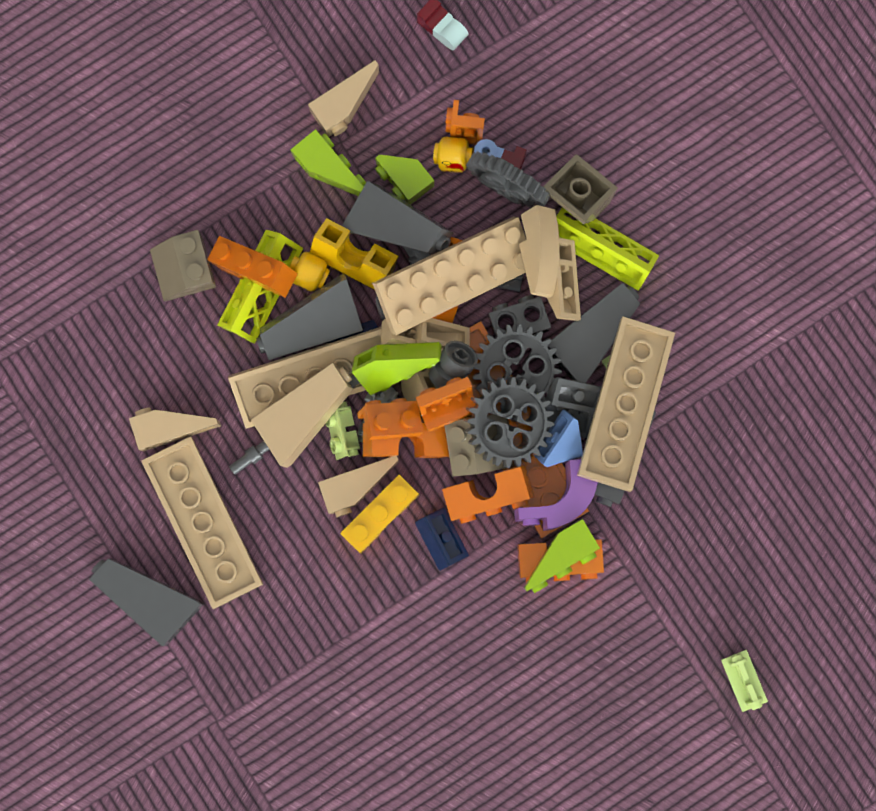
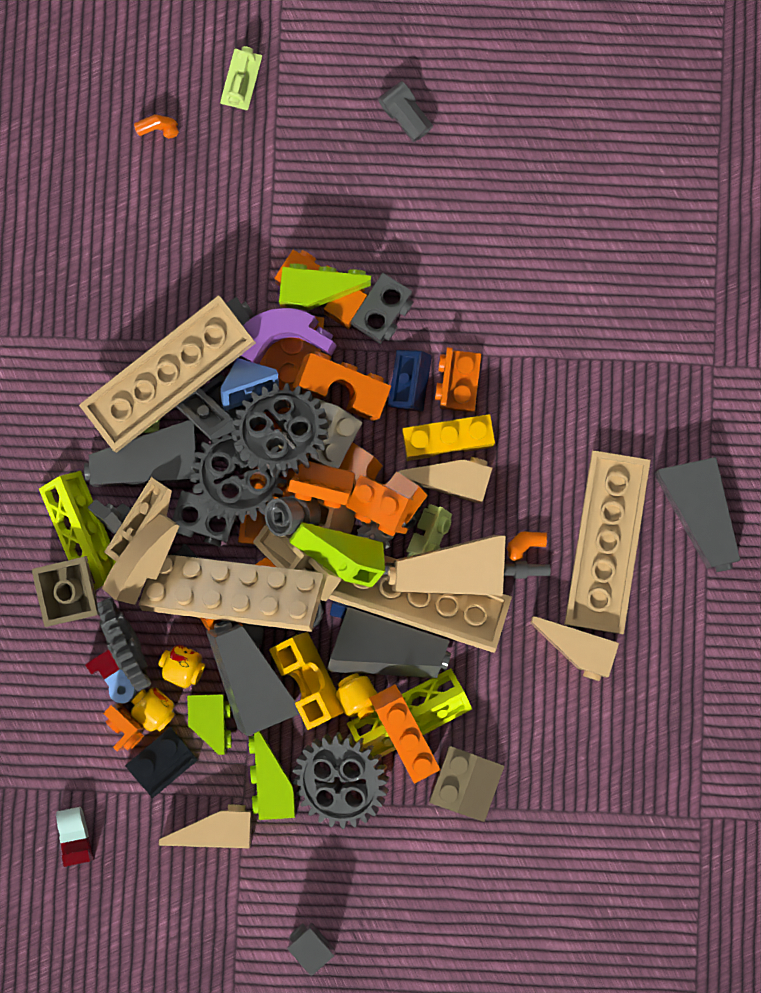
camera: 145 degrees left, 0 degrees up
(211, 66) = (310, 948): none -> dark grey brick
(266, 478) = (523, 541): none -> orange arm
(276, 201) = (337, 755): none -> dark grey gear
(403, 566) = (459, 380): none -> orange bracket
(418, 123) = (161, 762): none -> black plate
(454, 200) = (181, 666): none -> yellow head
(509, 577) = (376, 306): none -> dark grey brick
(590, 270) = (109, 515): none -> dark grey bracket
(604, 750) = (401, 105): none -> dark grey piece
(782, 598) = (157, 122): none -> orange arm

